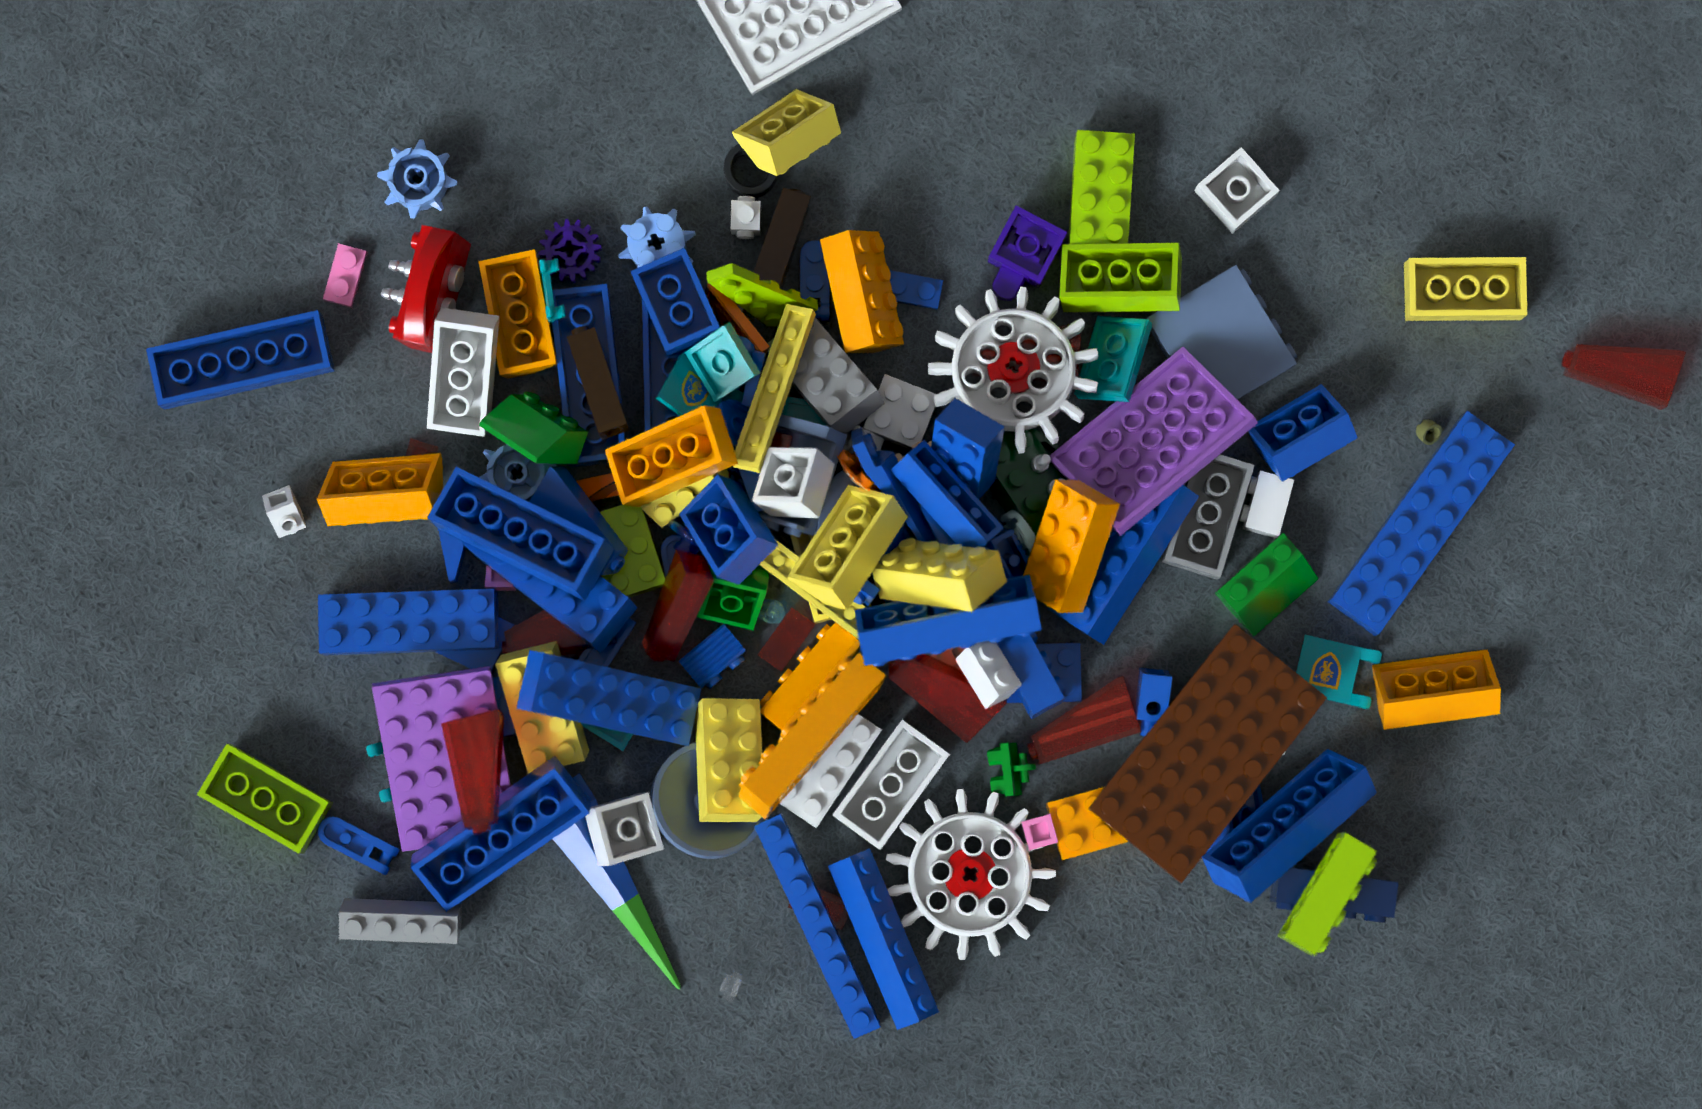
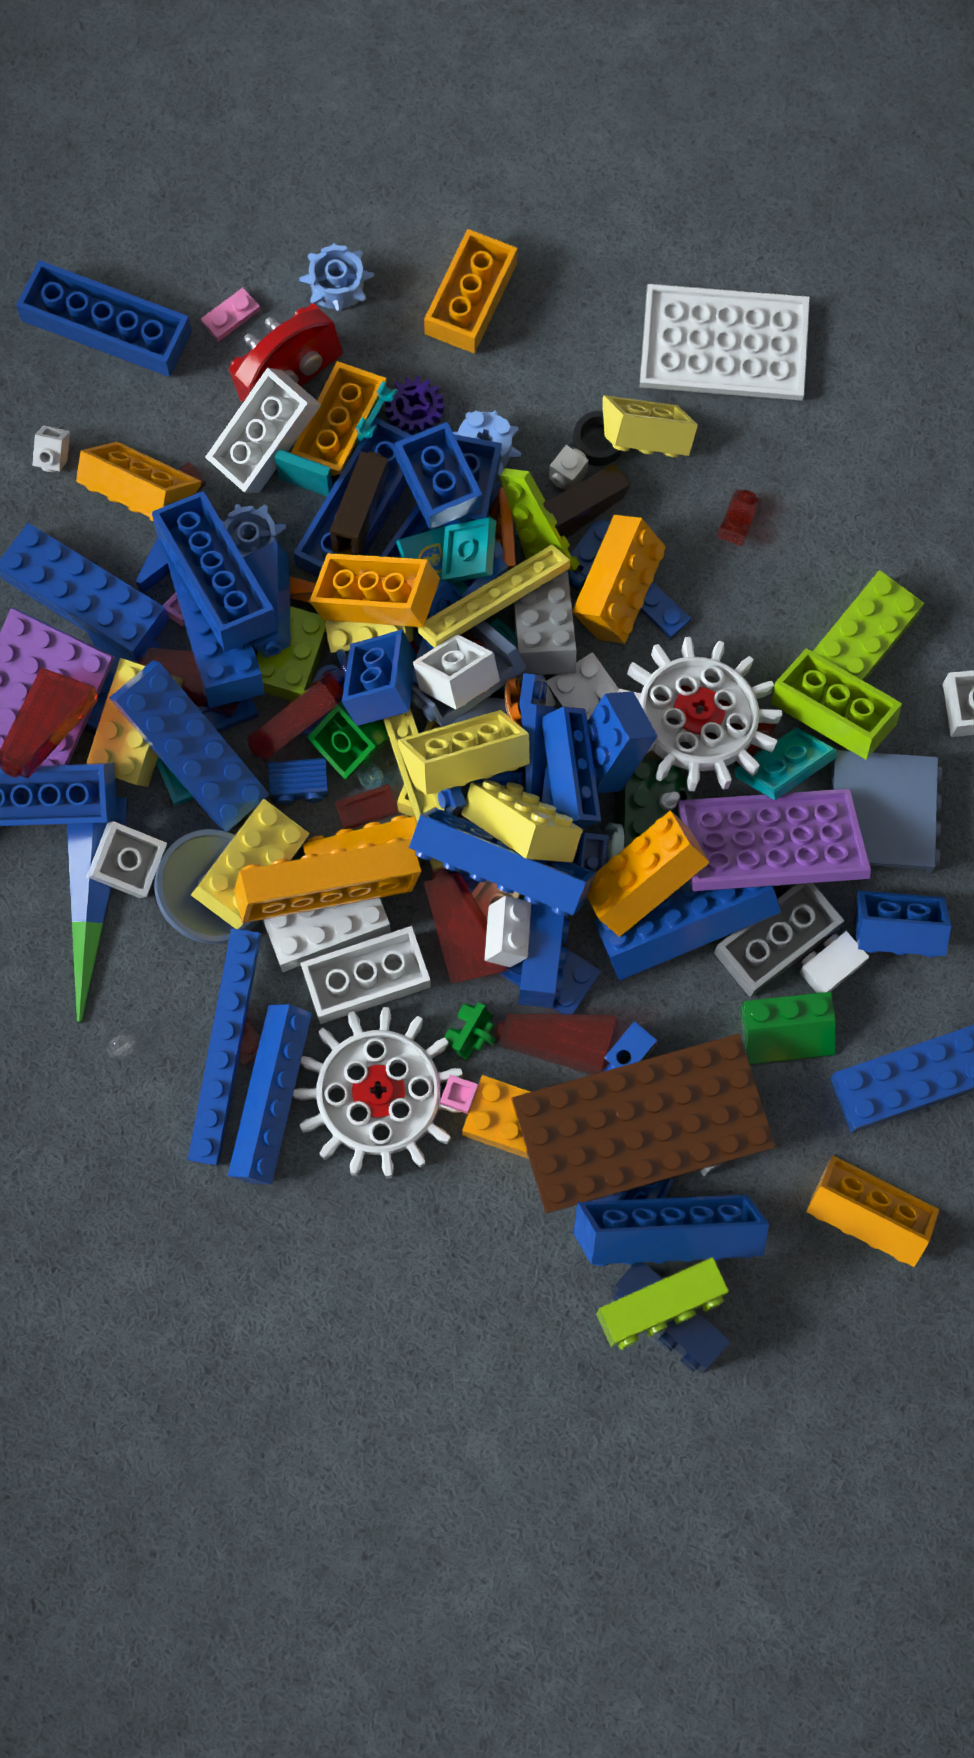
camera: 35 degrees right, 10 degrees down
(522, 382) = (303, 472): none -> teal tile
(536, 429) = (287, 509): green slope -> none
(544, 110) = (470, 291): none -> light orange brick
(656, 319) = (438, 475): none -> blue brick
(921, 159) = (739, 517): none -> clear red slope
(1024, 253) = (771, 636): dark purple brick -> none
(1333, 669) = (798, 1135): teal flag -> none

